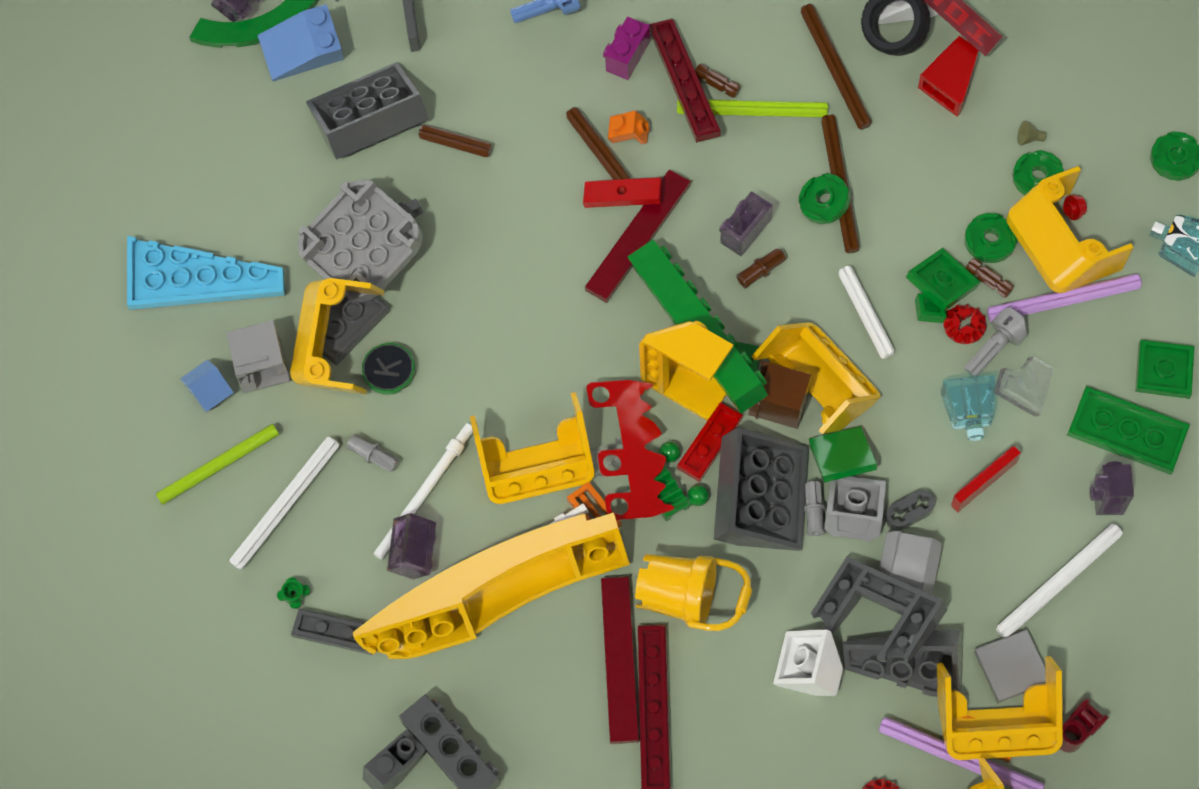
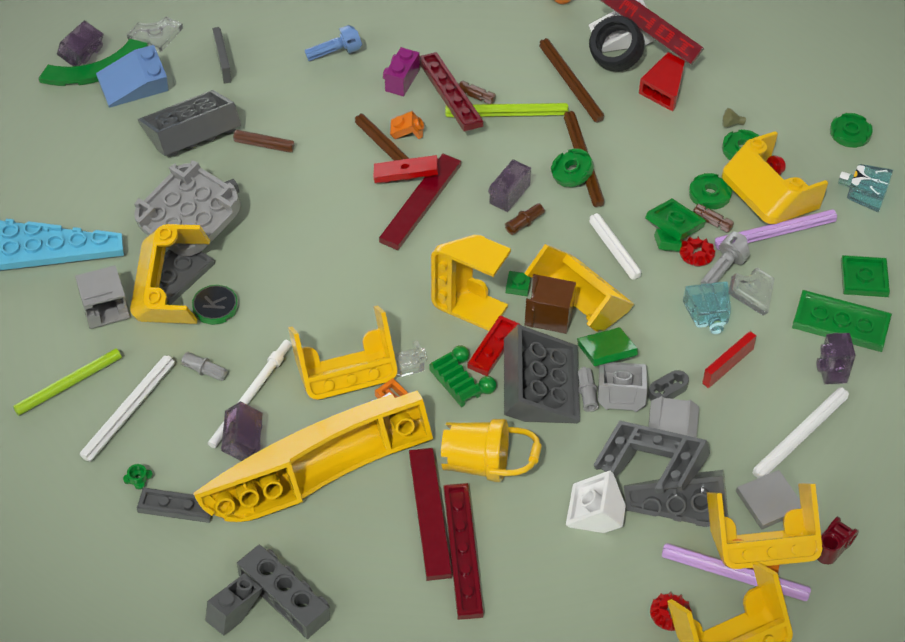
camera: 10 degrees left, 15 degrees down
(207, 385) = (58, 321): medium blue piece -> none
(635, 460) = (431, 356): red piece -> none
(682, 305) = (509, 282): green brick -> none

